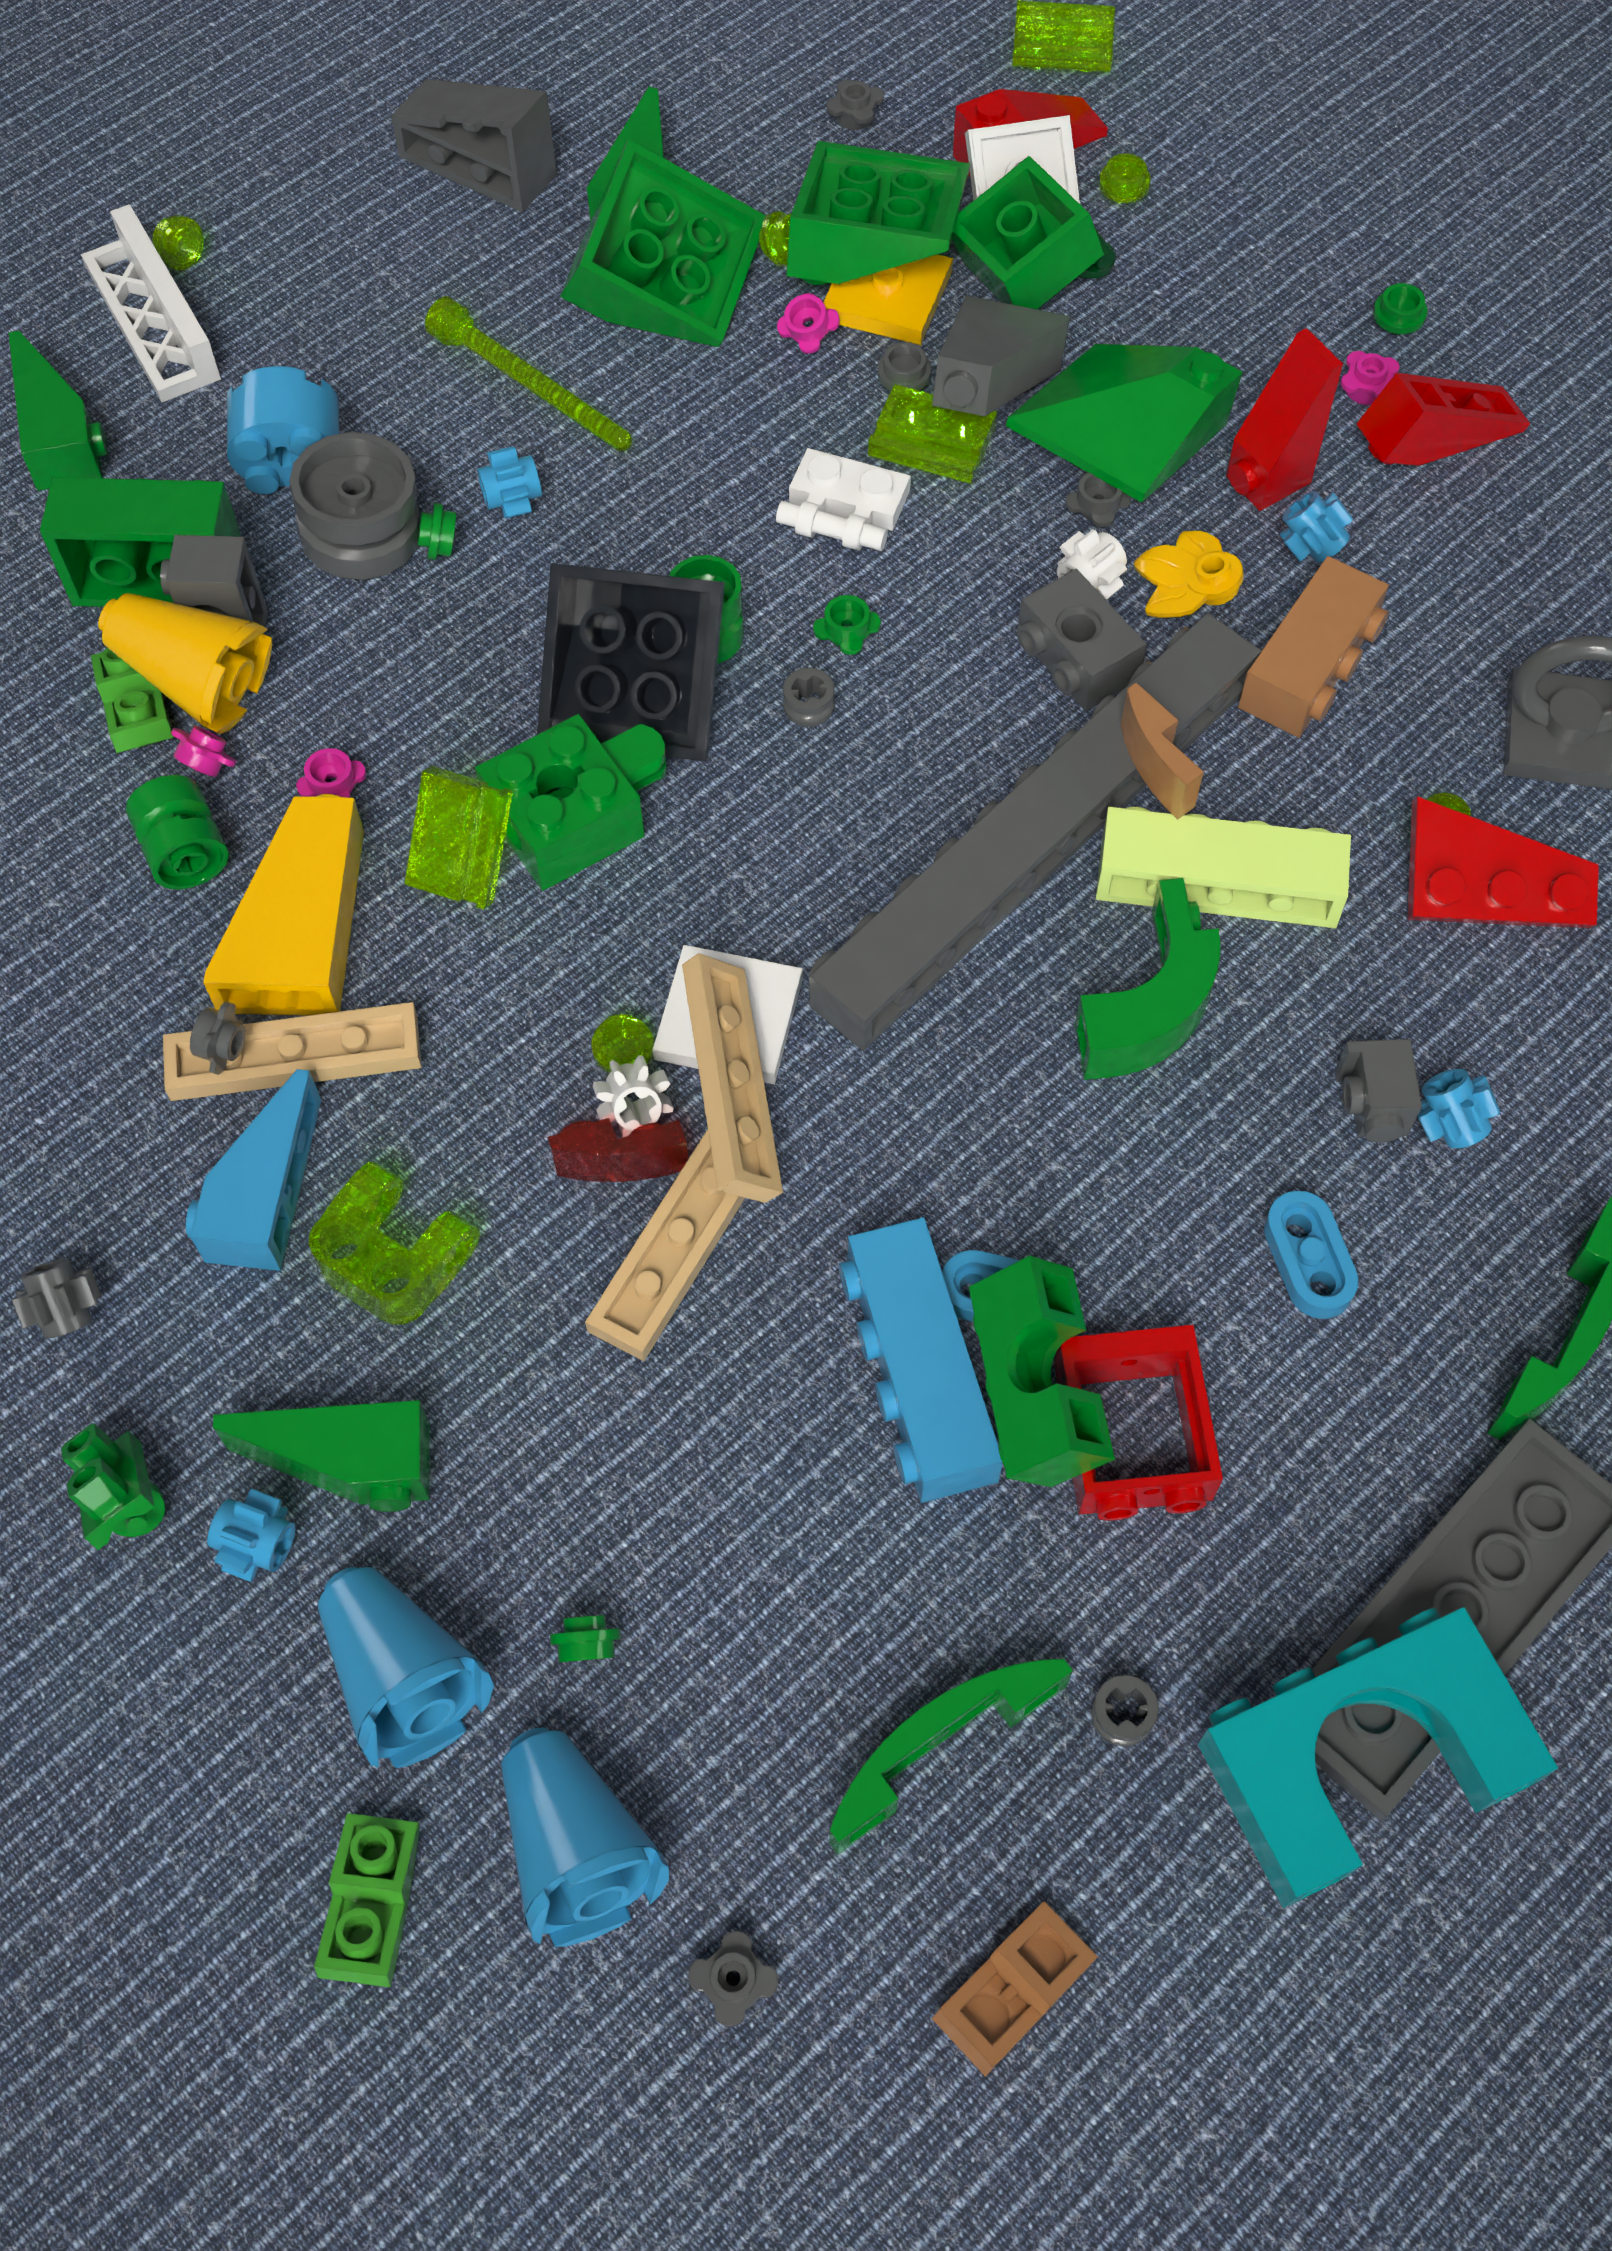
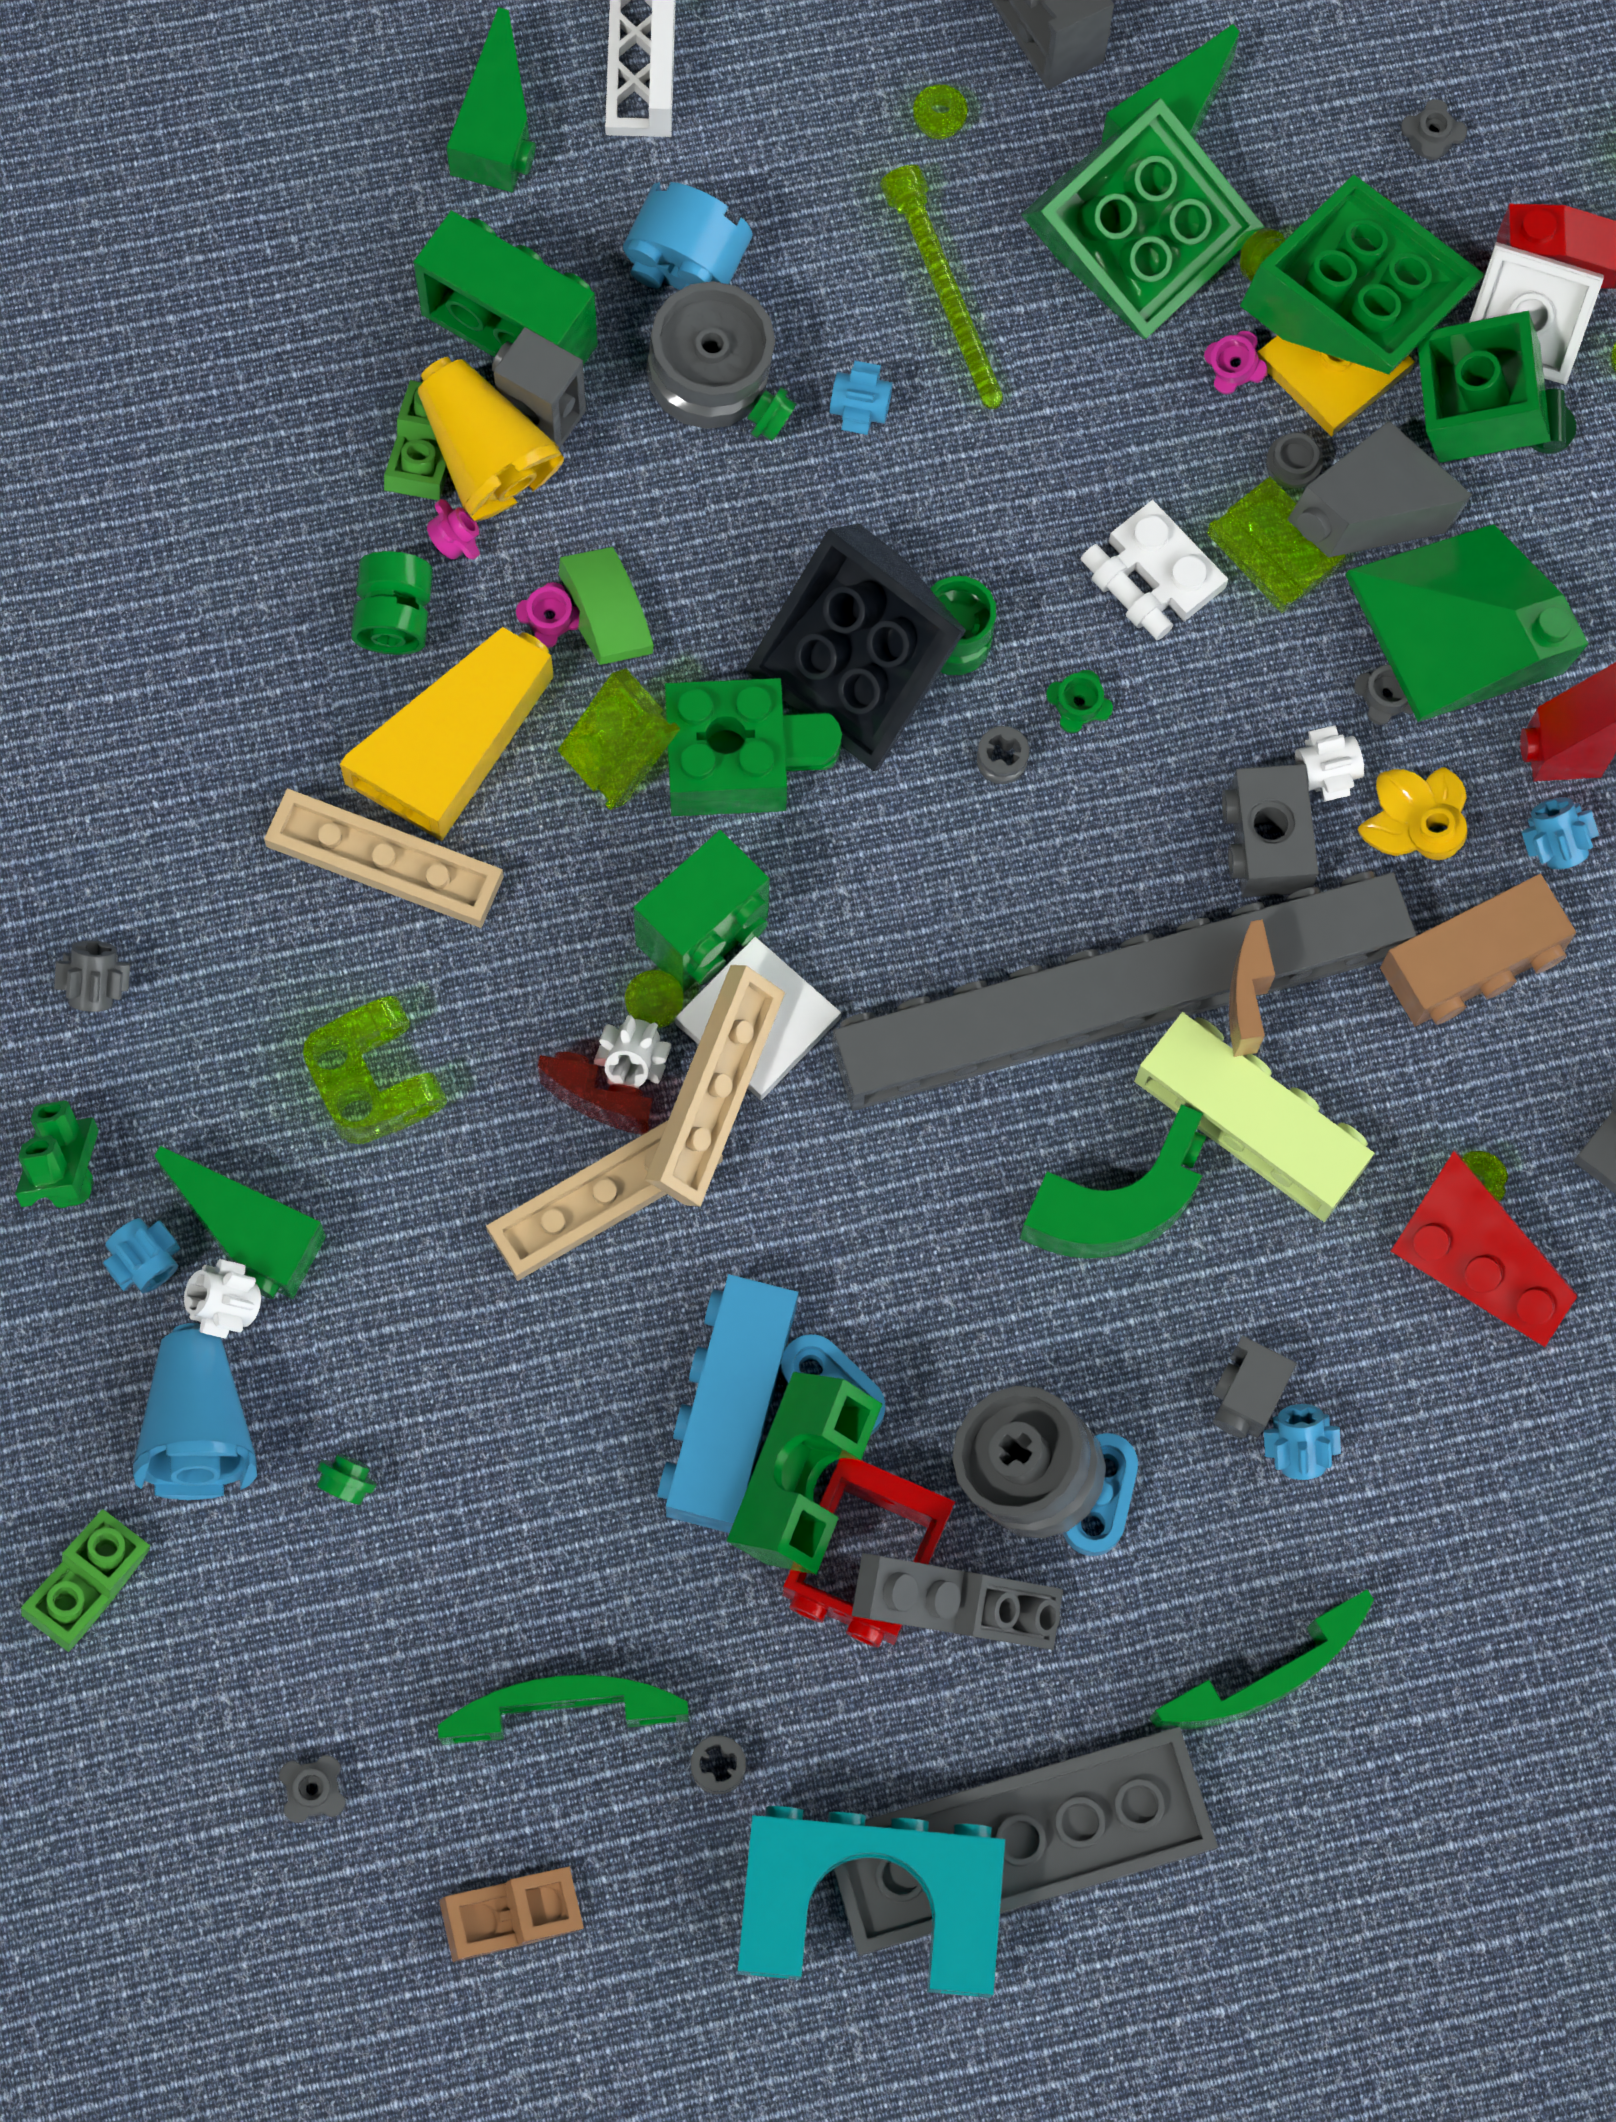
camera: 25 degrees right, 10 degrees up
(218, 1036) = (326, 821): dark grey plate -> none
(257, 1183) = (293, 964): dark azure slope -> none
(360, 1525) = (222, 1298): none -> white gear
(385, 744) = (608, 605): none -> bright green slope
(443, 260) = (937, 124): none -> clear neon green plate
(573, 1842) = (250, 1624): dark azure cone -> none
(626, 936) = (703, 912): none -> green brick
(1236, 1251) = (1029, 1462): none -> dark grey wheel
(1260, 1413) = (957, 1601): none -> dark grey slope

